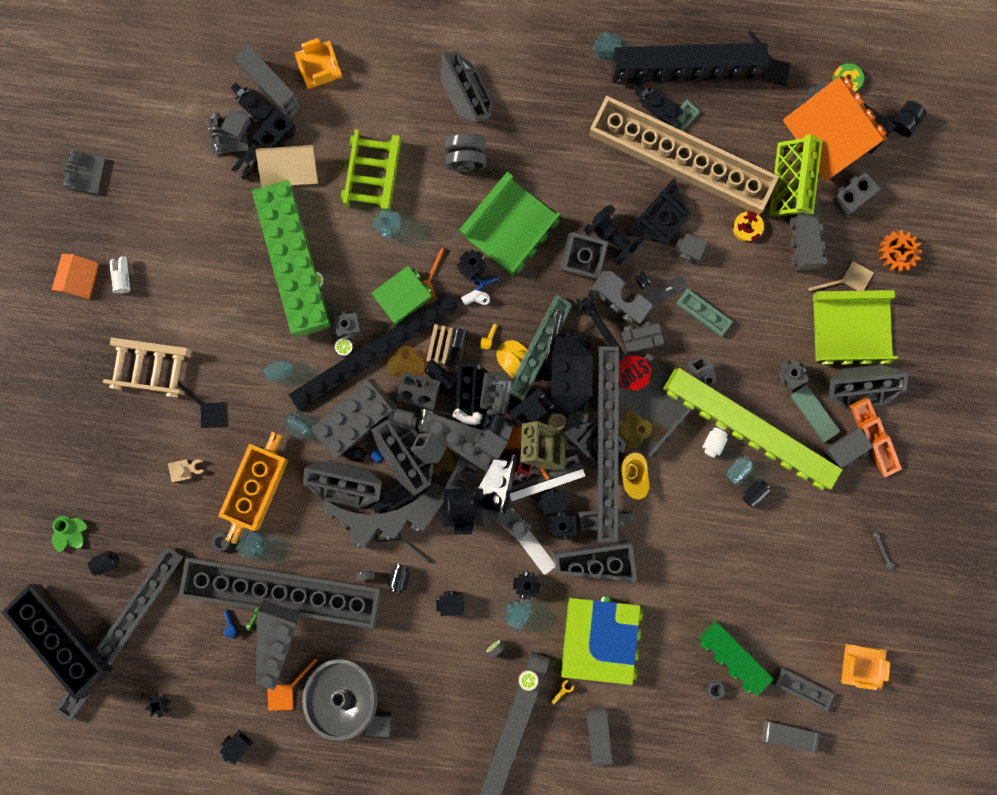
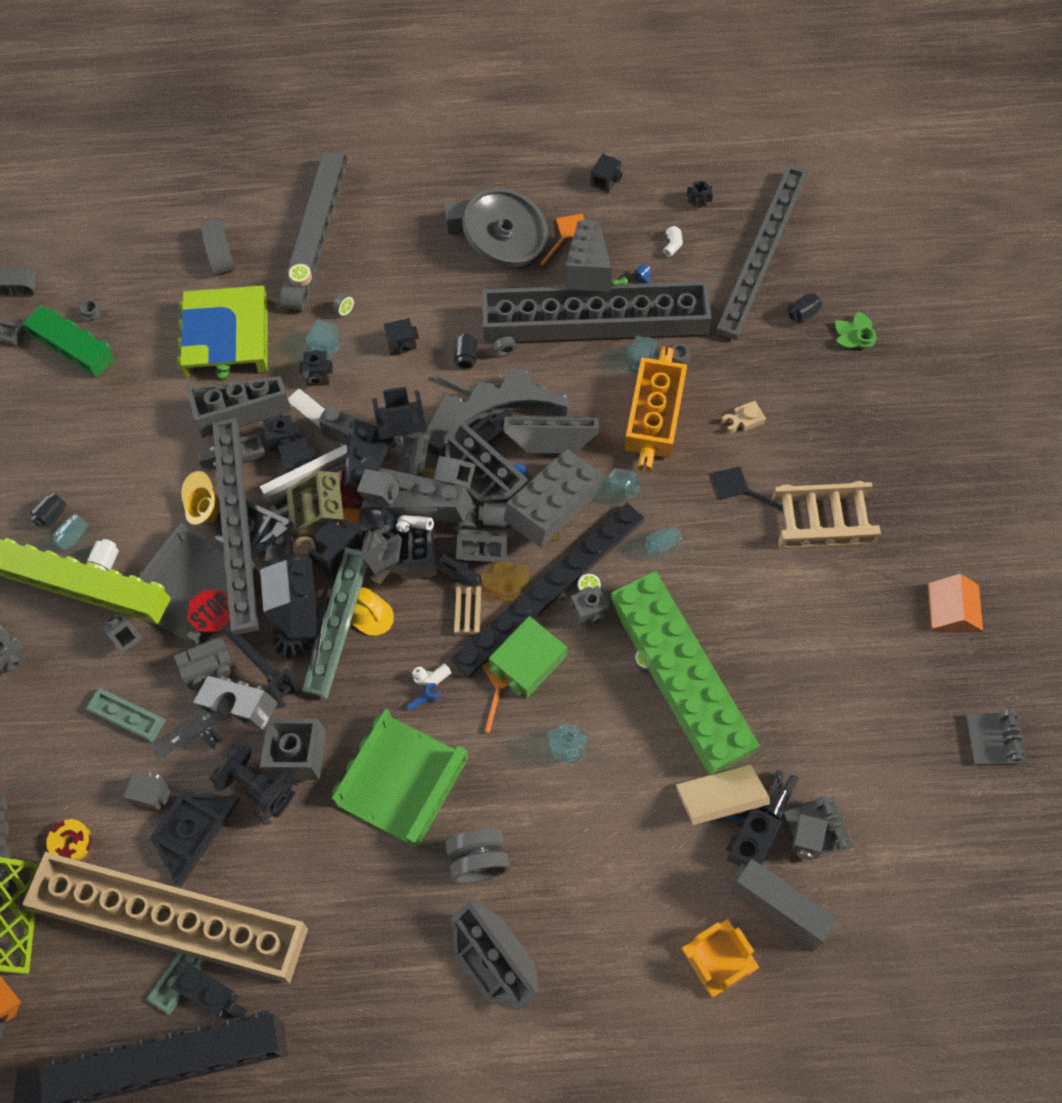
camera: 170 degrees right, 20 degrees down
(57, 641) = (825, 223): black brick -> none
(119, 275) = (898, 615): white hinge -> none
(192, 661) = (676, 242): none -> white arm
(252, 103) = (798, 877): black hinge -> none
(357, 454) = (540, 465): black plate -> none
(389, 165) = (583, 827): lime fence -> none
(458, 342) = (443, 613): black hinge -> none
(468, 270) = (442, 710): black brick -> none
(487, 342) = (407, 623): yellow hand -> none
(562, 691) = (260, 282): yellow hand -> none
(605, 45) = (293, 1072): clear light blue brick -> none
(630, 429) = (204, 554): clear yellow plate -> none

